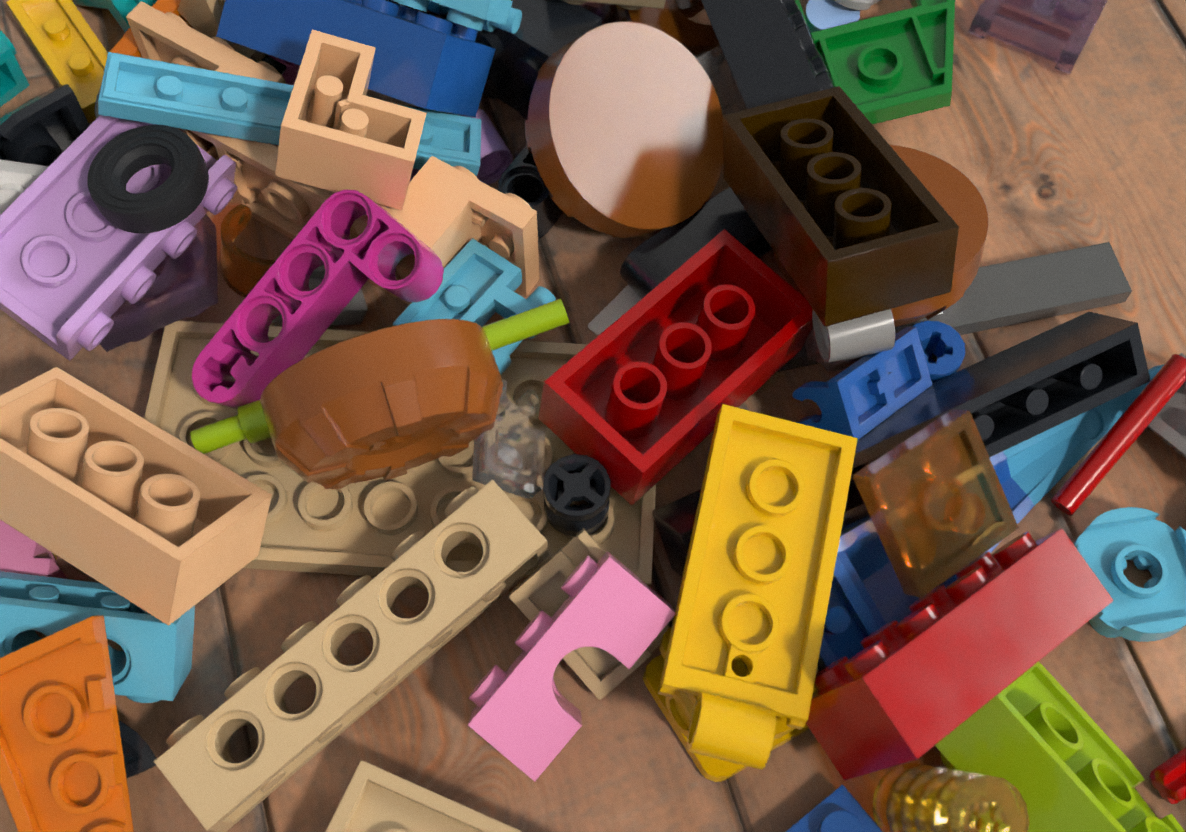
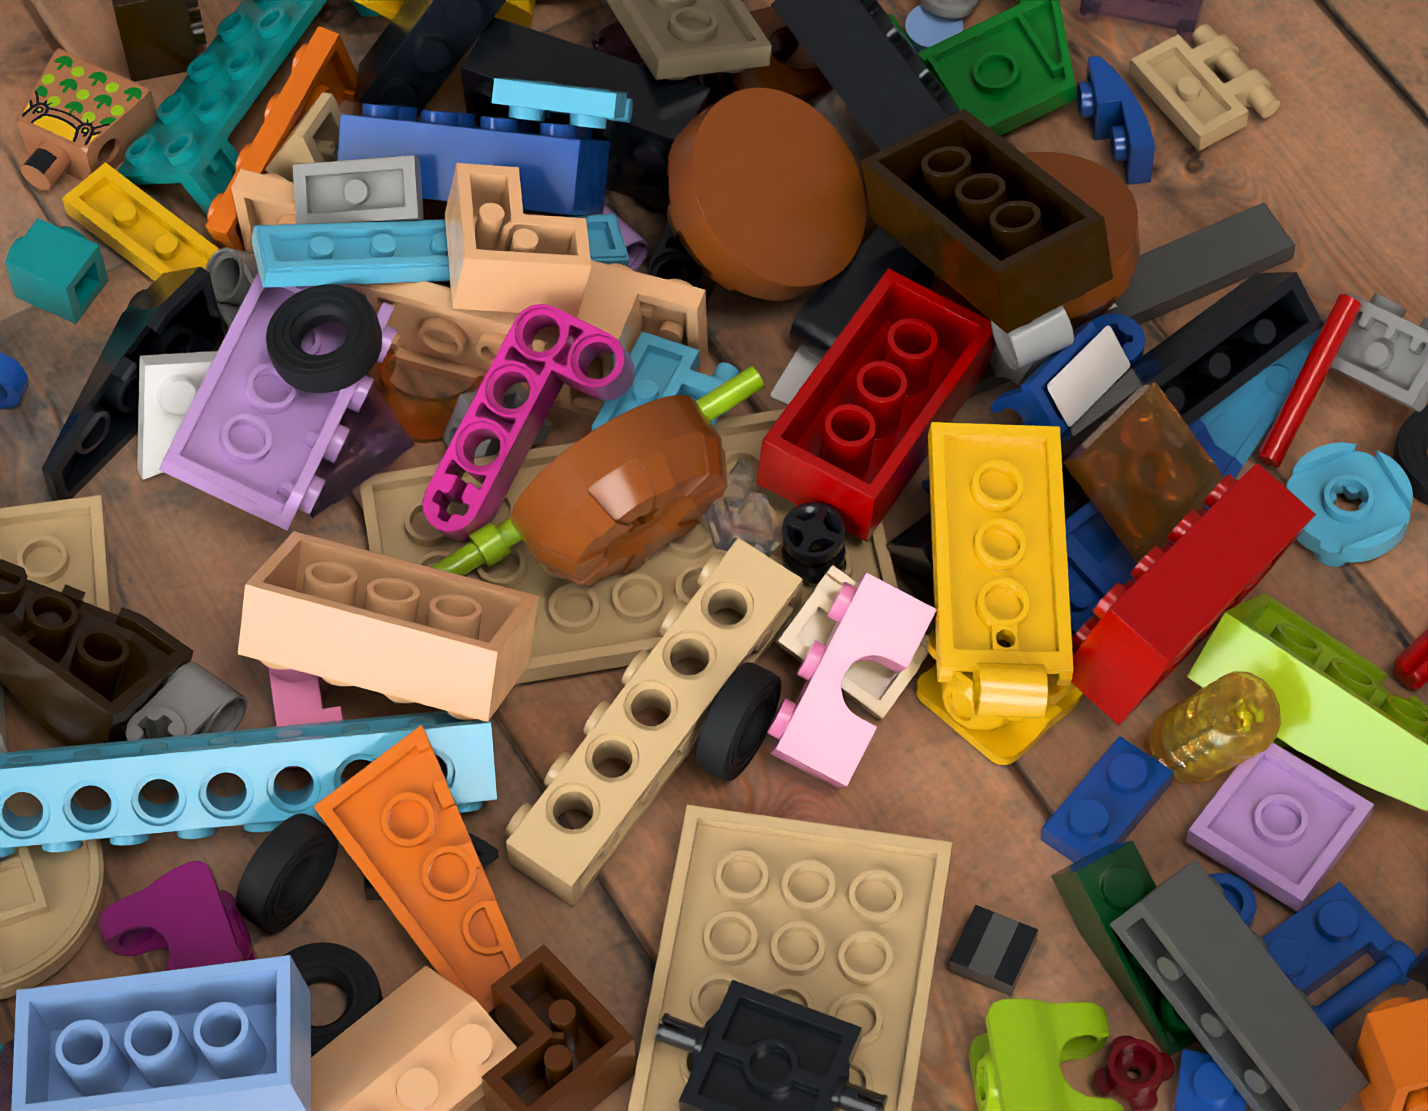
camera: 10 degrees left, 5 degrees down
(229, 41) = (358, 190): none -> light grey plate
(442, 675) = (738, 721): none -> black tyre
(899, 383) = (1088, 375): none -> white sticker
(986, 130) = (1117, 117): none -> blue slope
(1061, 126) = (1192, 94): none -> tan plate

